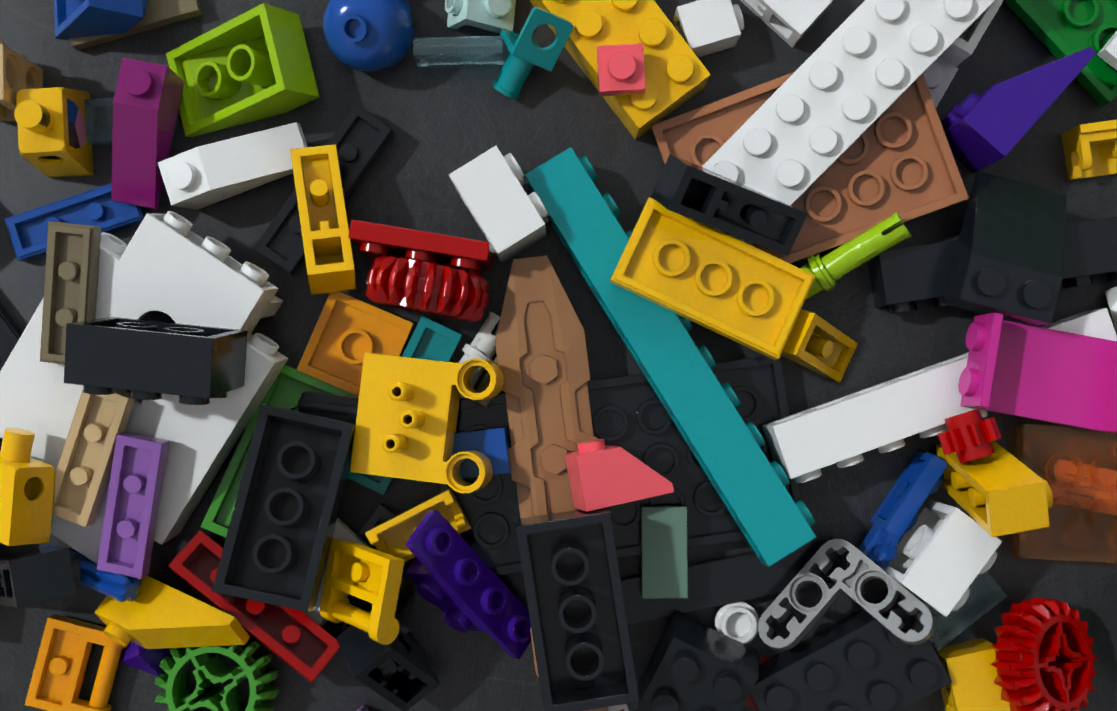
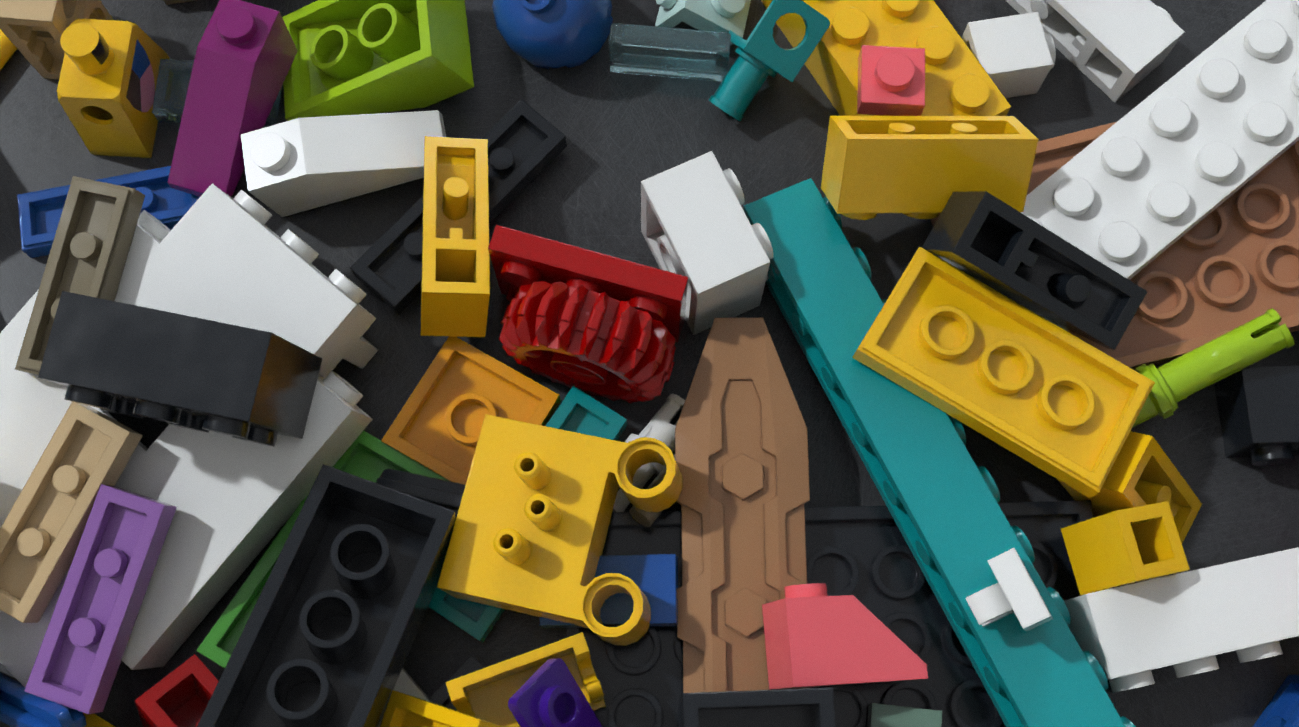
camera: 10 degrees right, 15 degrees down
(646, 130) = (921, 160): none -> yellow brick
(723, 437) = (1012, 593): none -> white tile
(799, 391) = (1124, 547): none -> yellow brick

